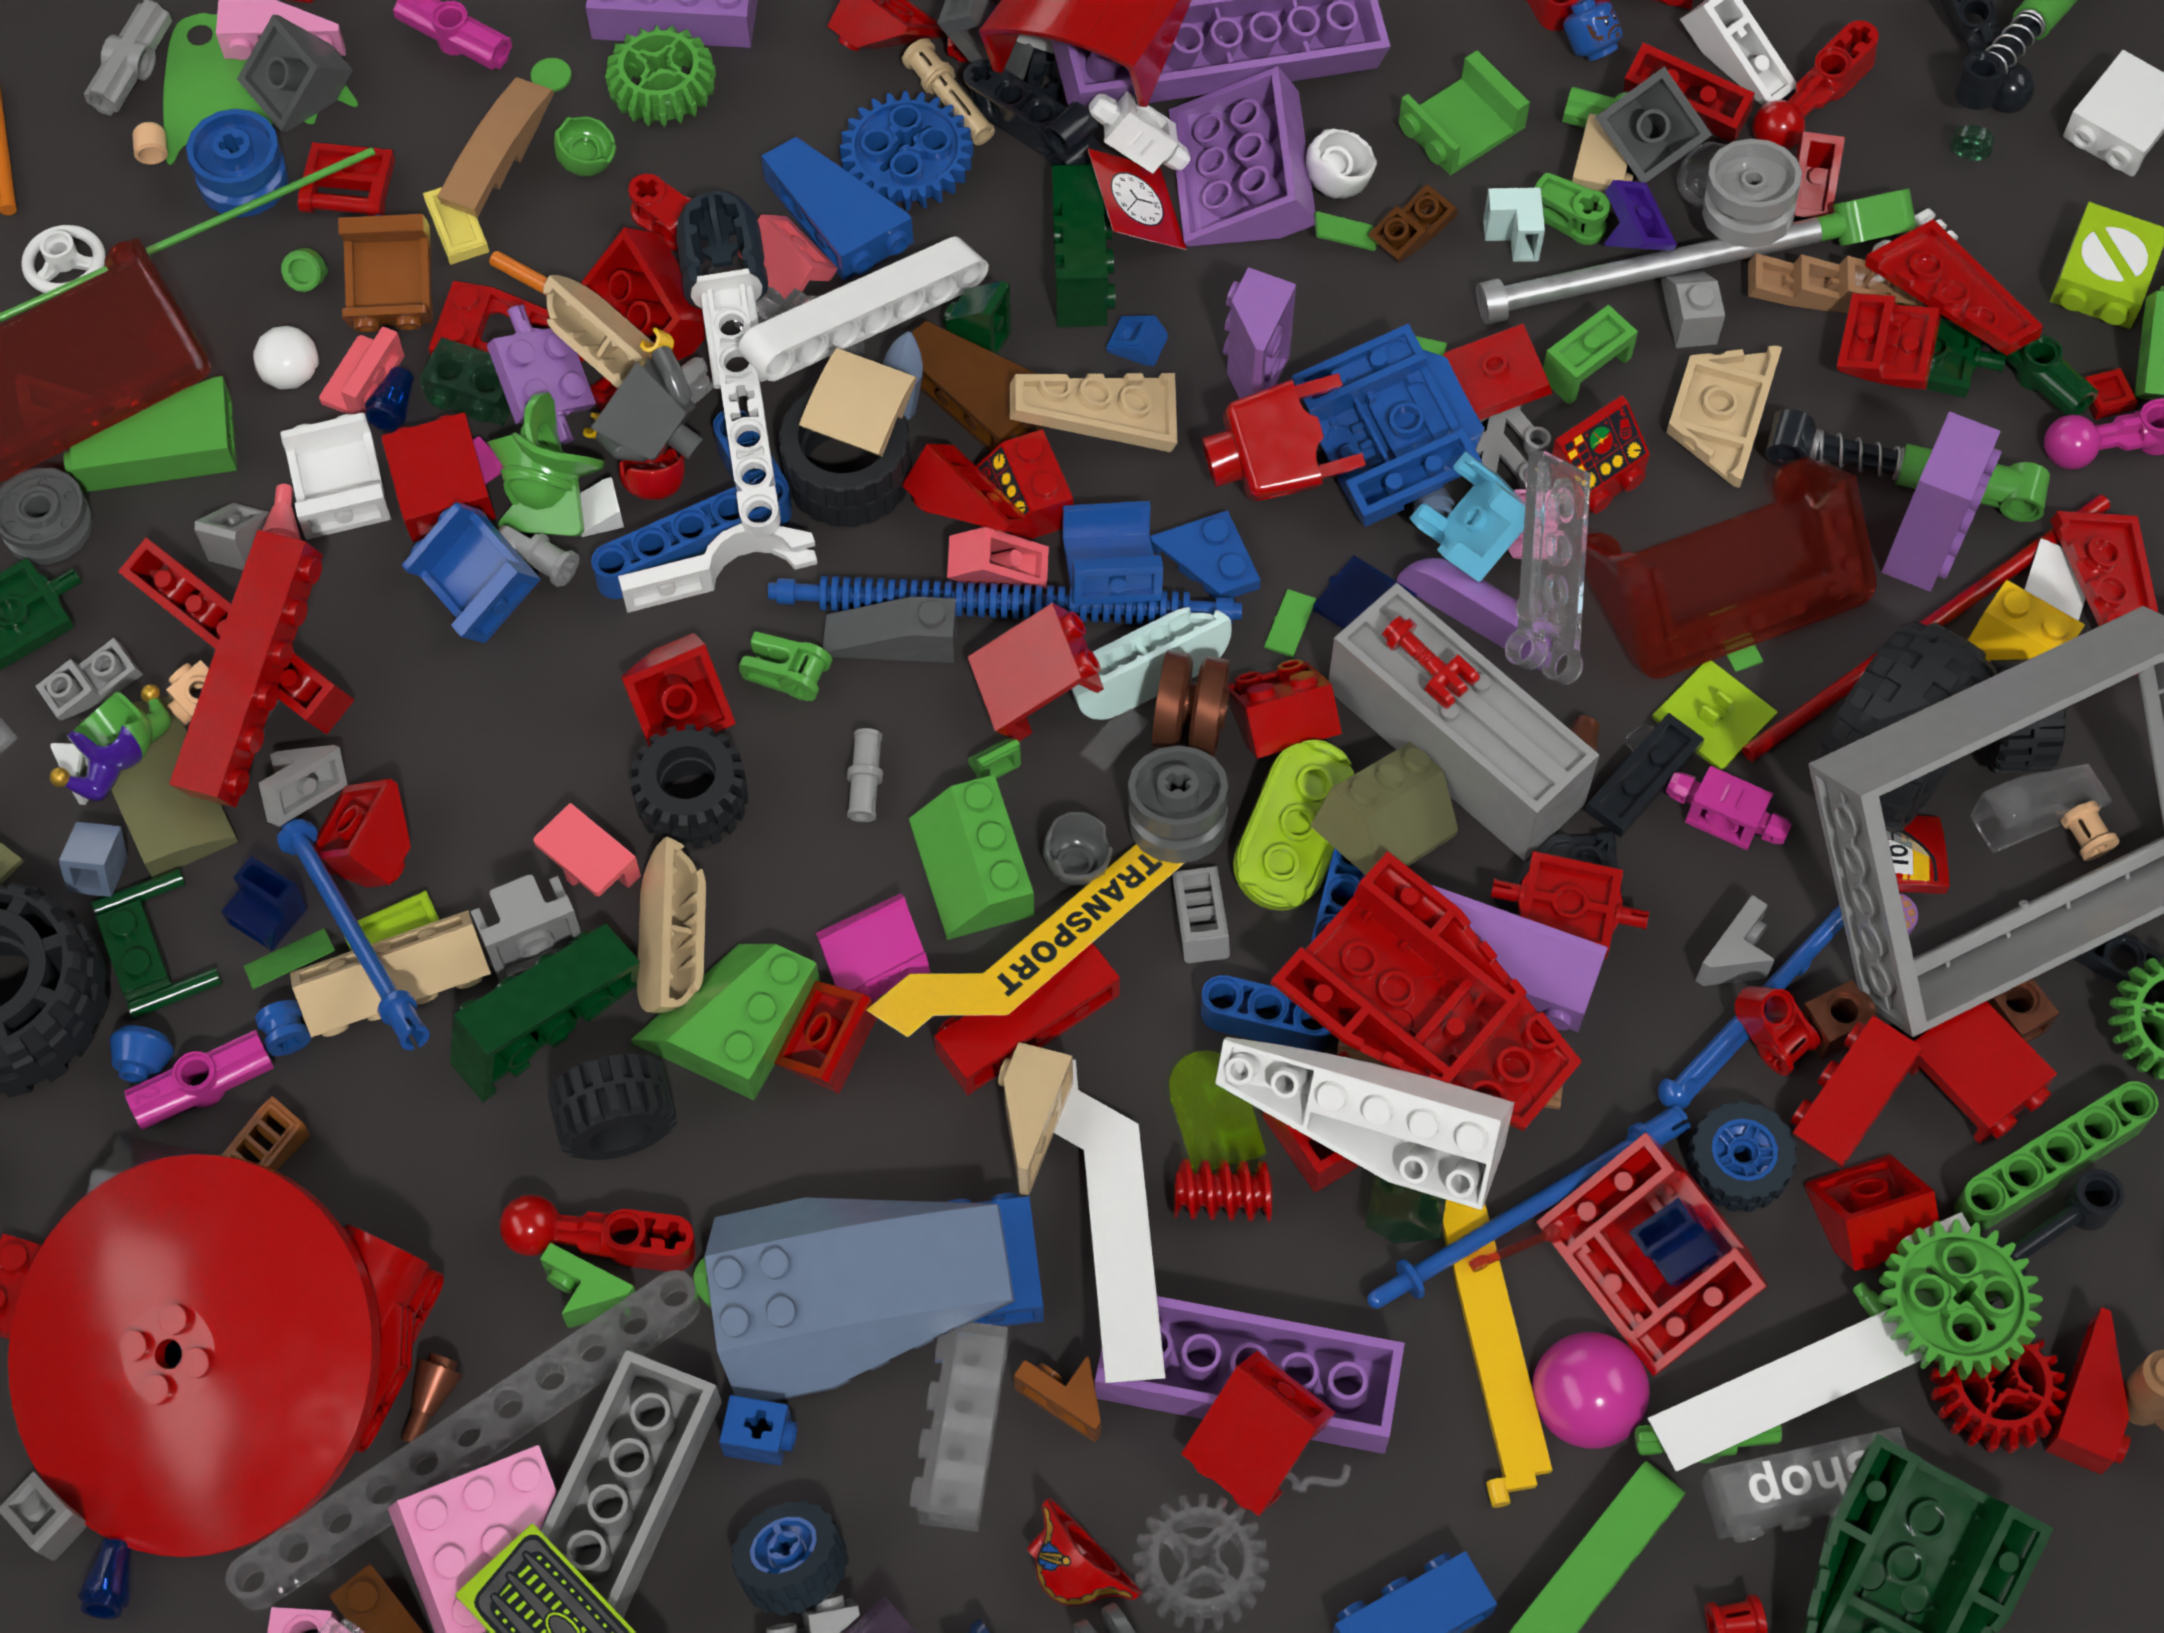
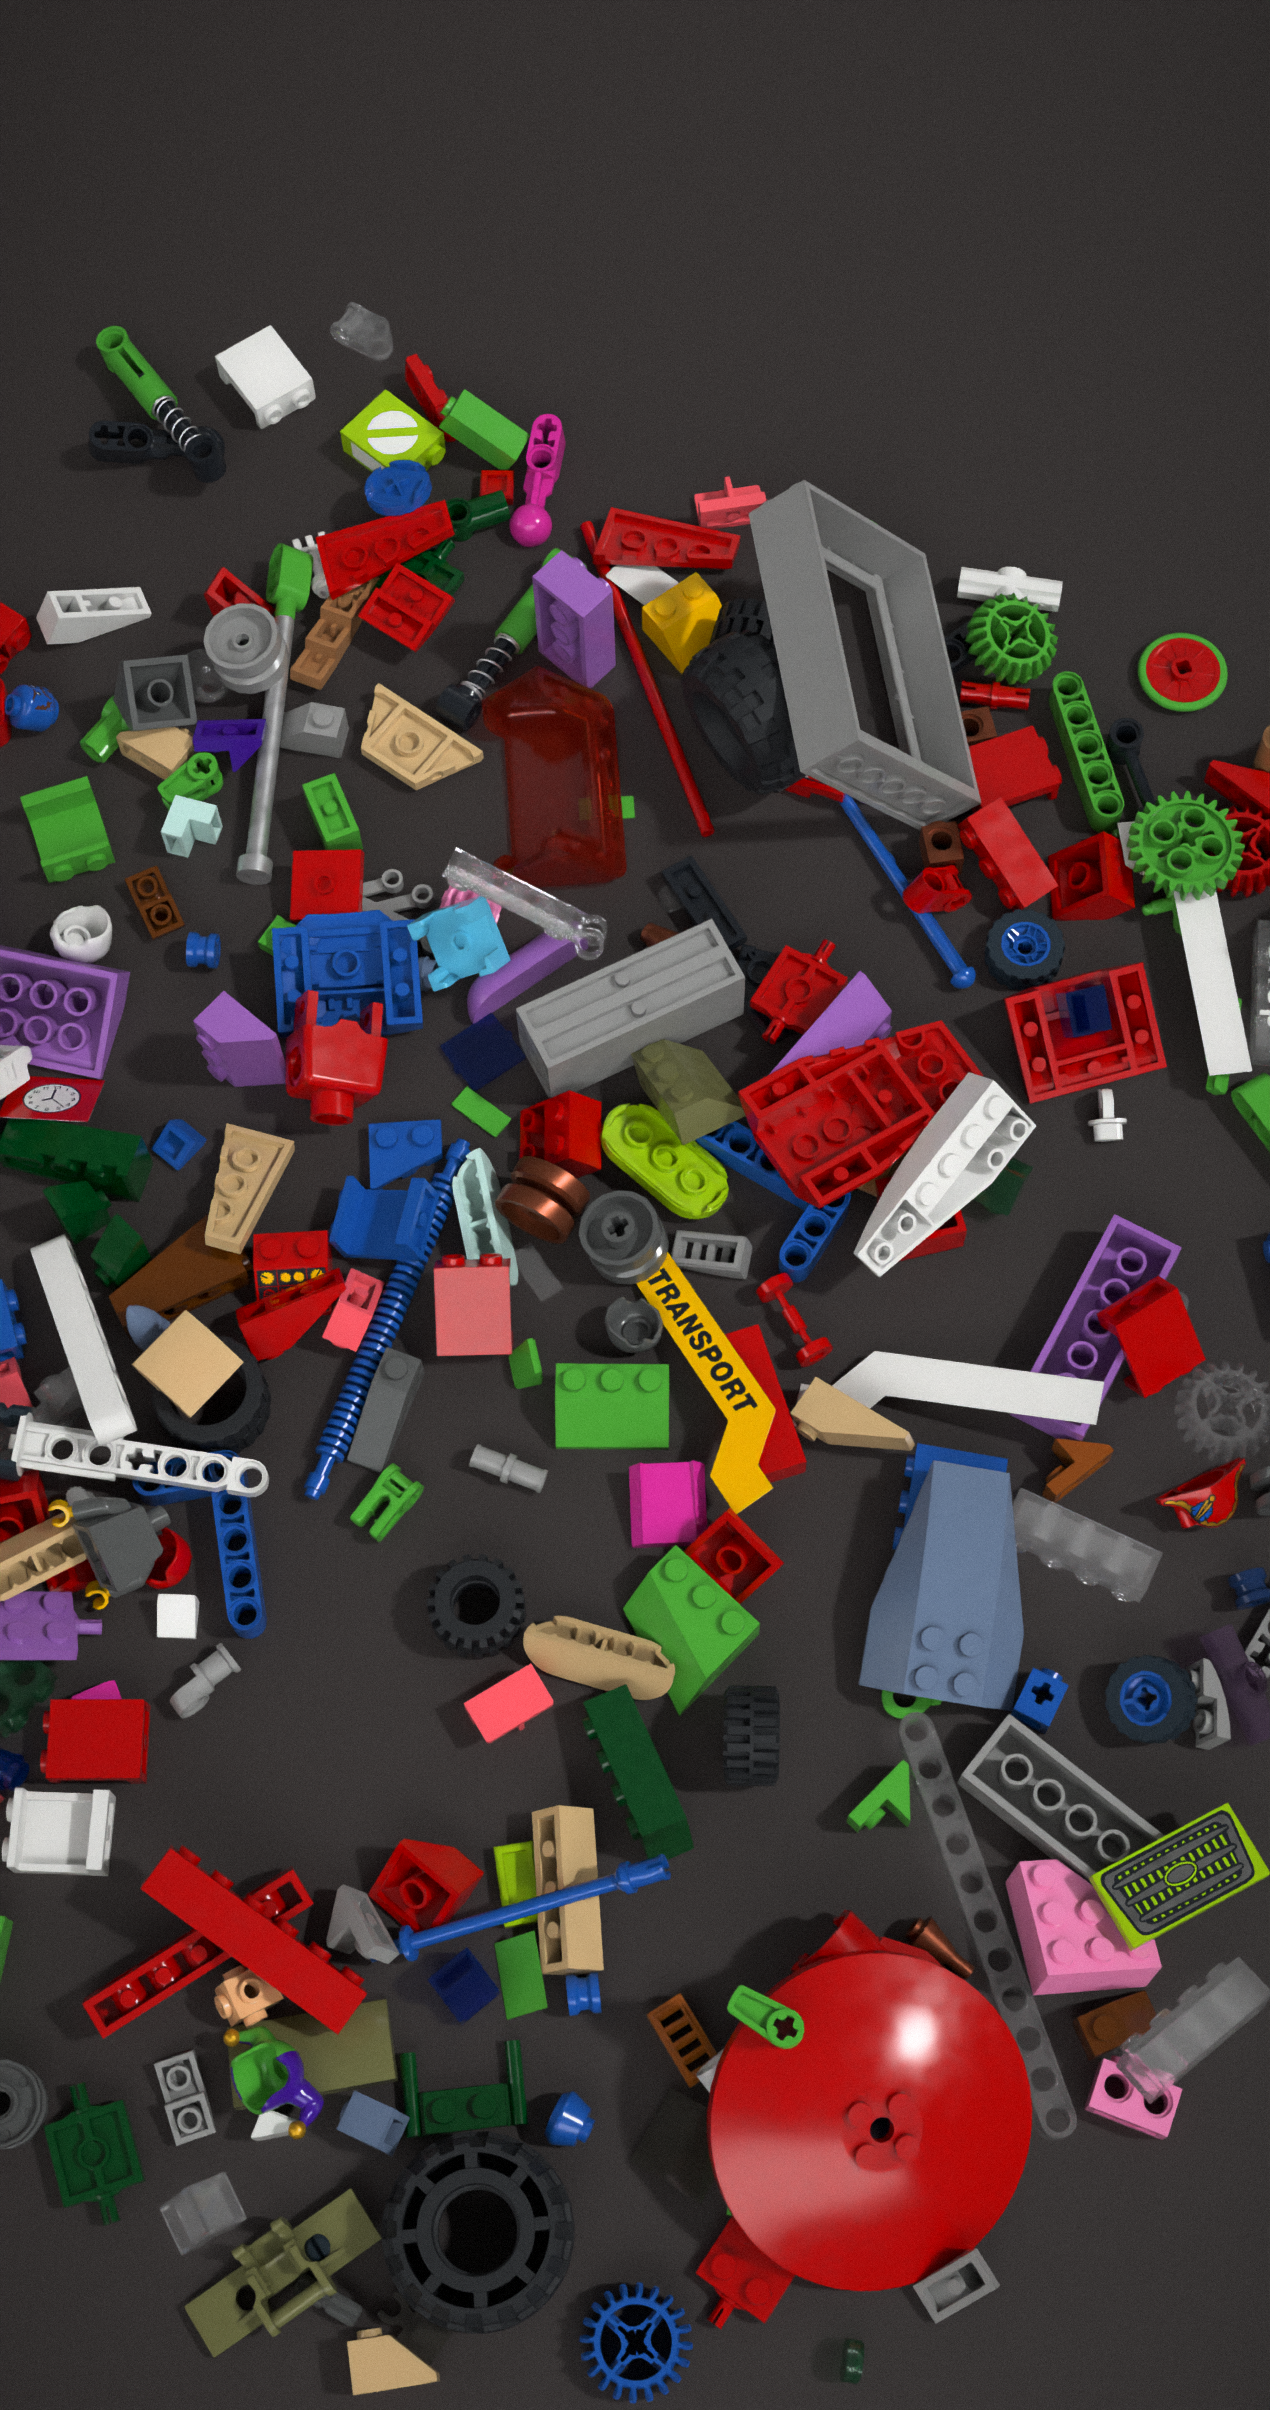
camera: 70 degrees left, 5 degrees up
(107, 1582) = (1022, 2240): clear blue cone -> none
(172, 1093) = (613, 2101): dark pink piece -> none
(230, 533) = (84, 1932): light grey slope -> none
(249, 1174) = (762, 2013): none -> bright green piece
(282, 517) = (99, 1893): coral cone -> none
(472, 571) = (209, 1732): blue panel -> none
(526, 925) = (564, 1764): light grey panel -> none
(534, 1222) = (823, 1826): red beam -> none
(541, 476) = (139, 1651): bright green helmet -> none
(677, 688) = (384, 1592): red slope -> none
(699, 573) = (277, 1466): white piece -> none
(1017, 259) = (79, 1208): none -> dark green slope
(1178, 991) = (775, 1289): none -> red wheel
(1209, 1117) = (863, 1298): clear neon green window -> none
(1223, 1189) = (944, 1306): red piece -> none
(1343, 231) = (142, 954): bright green window -> none
(1372, 284) = (203, 950): none -> blue wheel
(1400, 634) = (569, 1017): red hinge -> none
(1411, 1278) = (992, 1010): blue bar -> none
(1498, 1362) = (1126, 1164): yellow piece -> none
(1542, 1322) = (1107, 1127): none -> white piece
(1550, 1233) = (1045, 1095): clear red hinge -> none
(1591, 1390) = (1165, 1110): dark pink piece -> none
(1609, 450) = (431, 838): slope -> none
(1716, 100) = (98, 678): red brick -> none
(1718, 711) = (664, 841): lime piece -> none
(1728, 808) = (752, 859): dark pink piece -> none
(1735, 955) = (864, 898): light grey slope -> none
(1784, 120) = (172, 610): red beam -> none
(1972, 142) = (247, 488): clear green tile -> none
(2037, 277) = (398, 488): none -> blue tile
(2089, 830) = (856, 641): light nougat bush -> none
(2089, 1027) = (995, 695): none -> red pin

